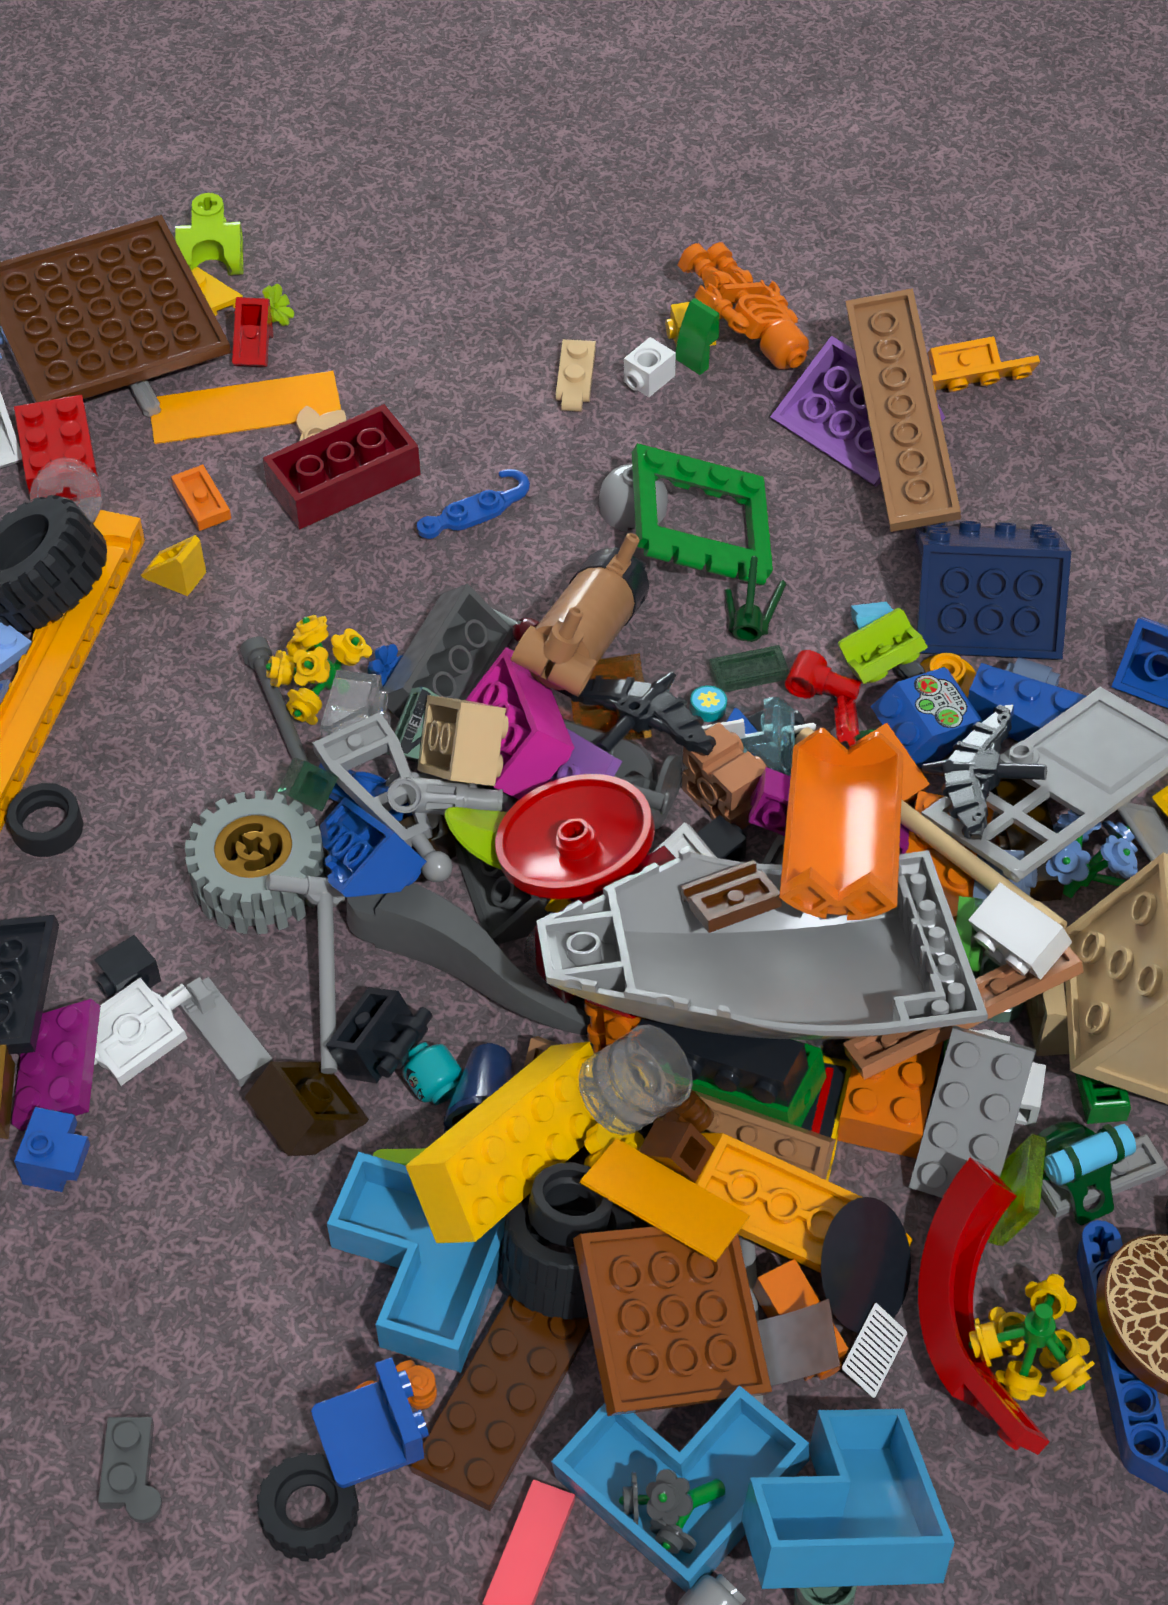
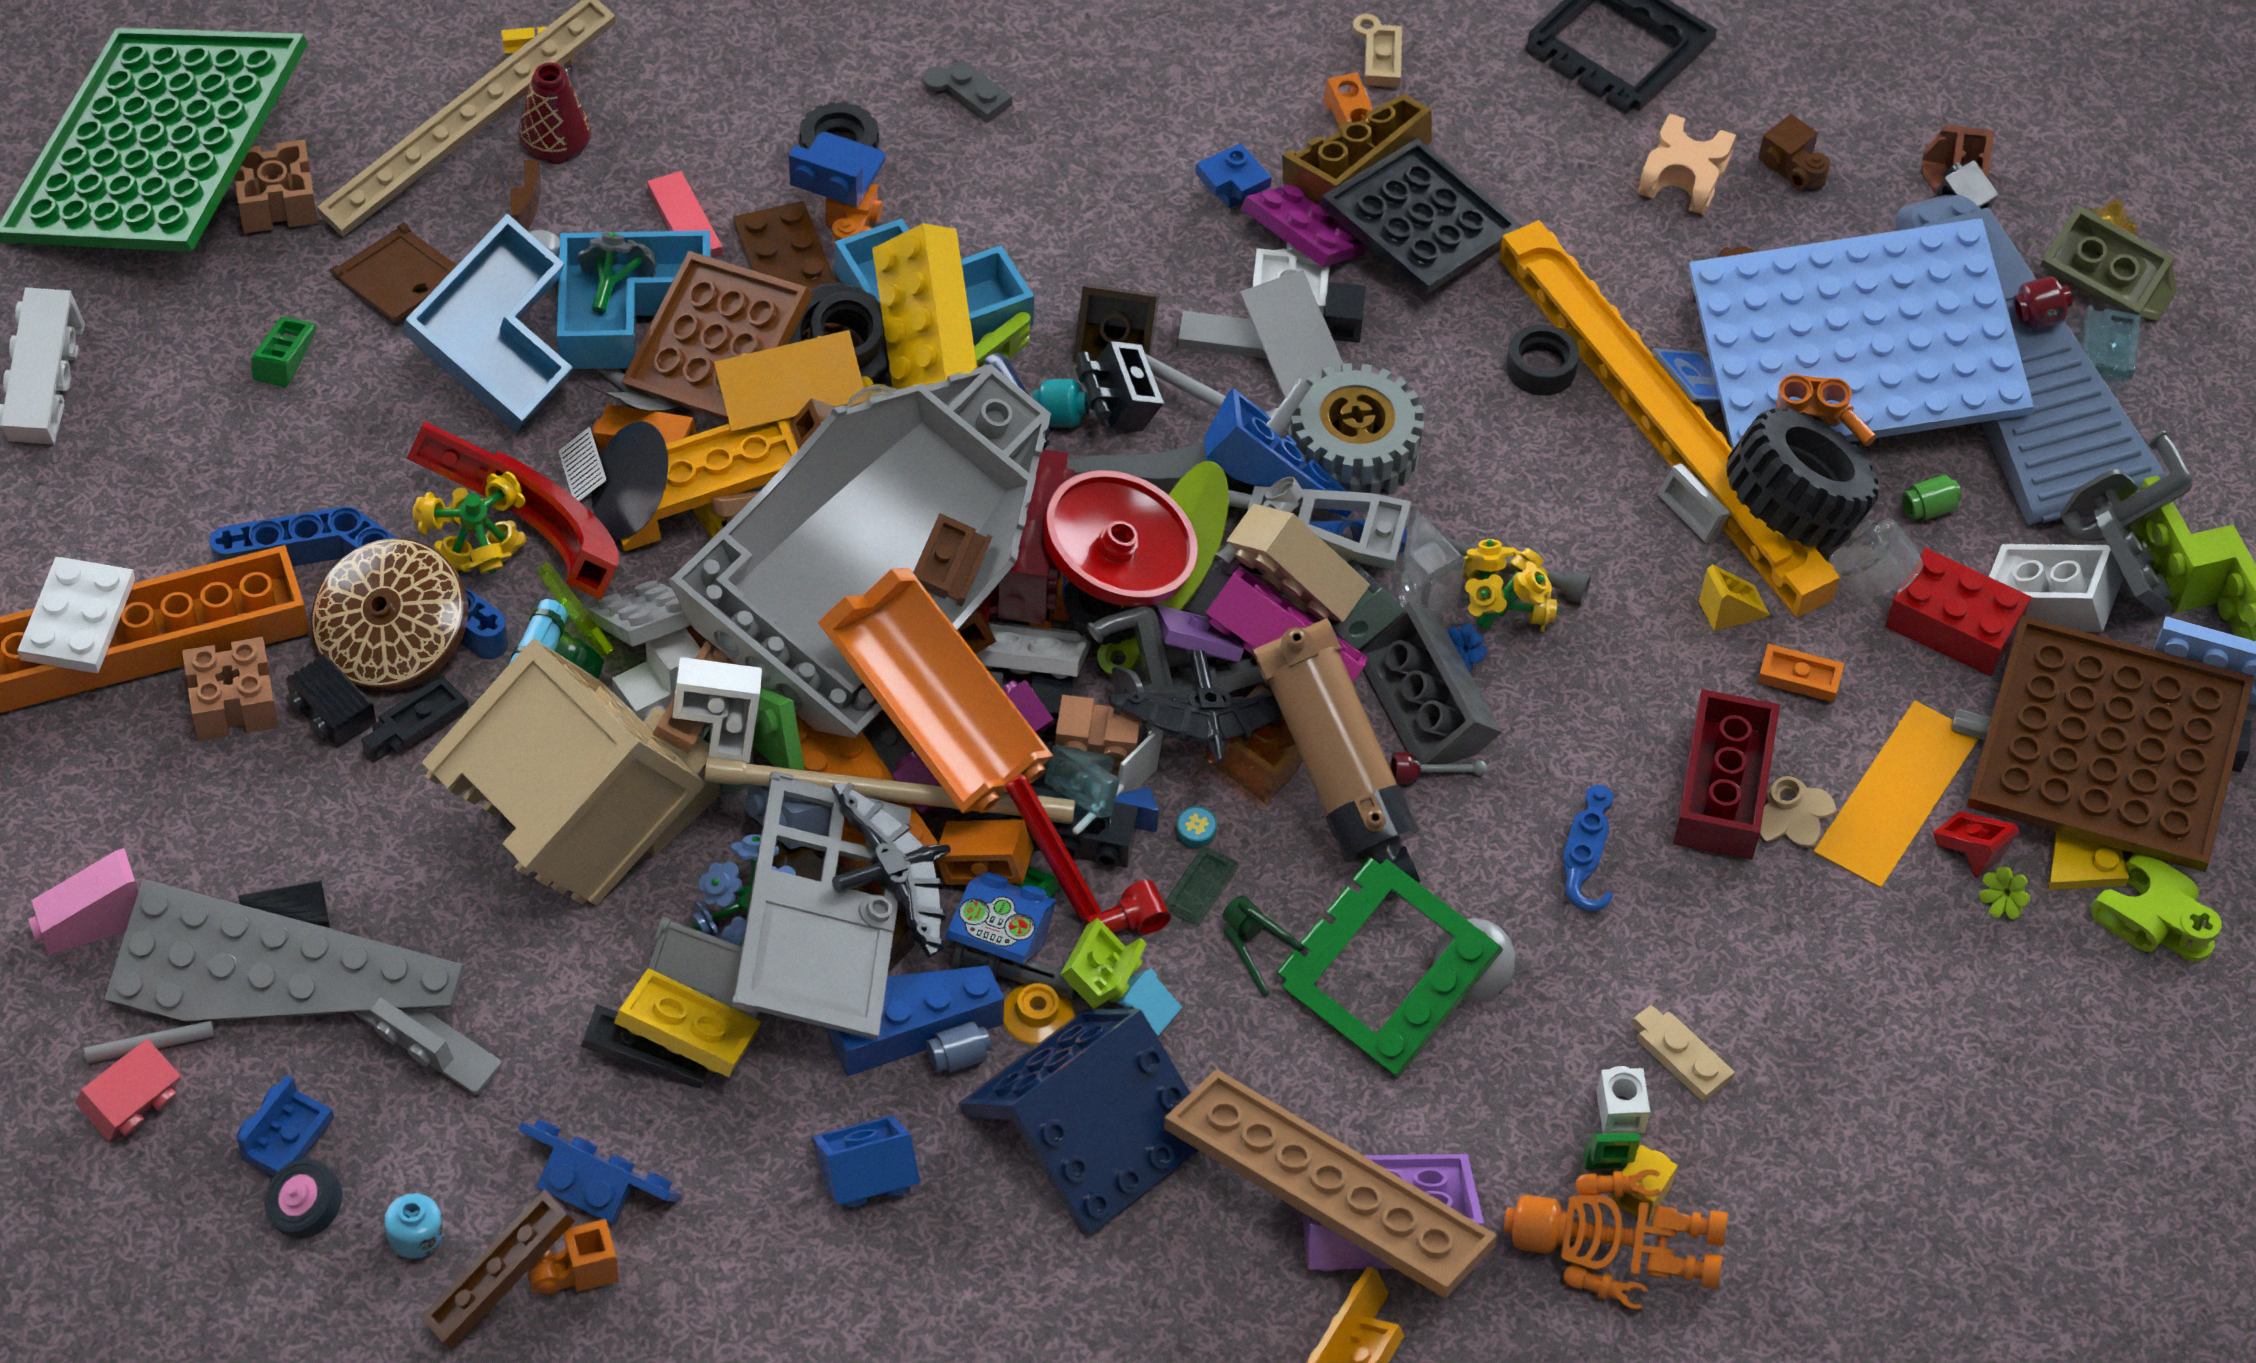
camera: 130 degrees right, 0 degrees up
(104, 639) = (1694, 503): none -> light grey tile
(200, 965) = (1291, 329): none -> light grey window
(307, 784) = (1378, 477): clear green brick -> none

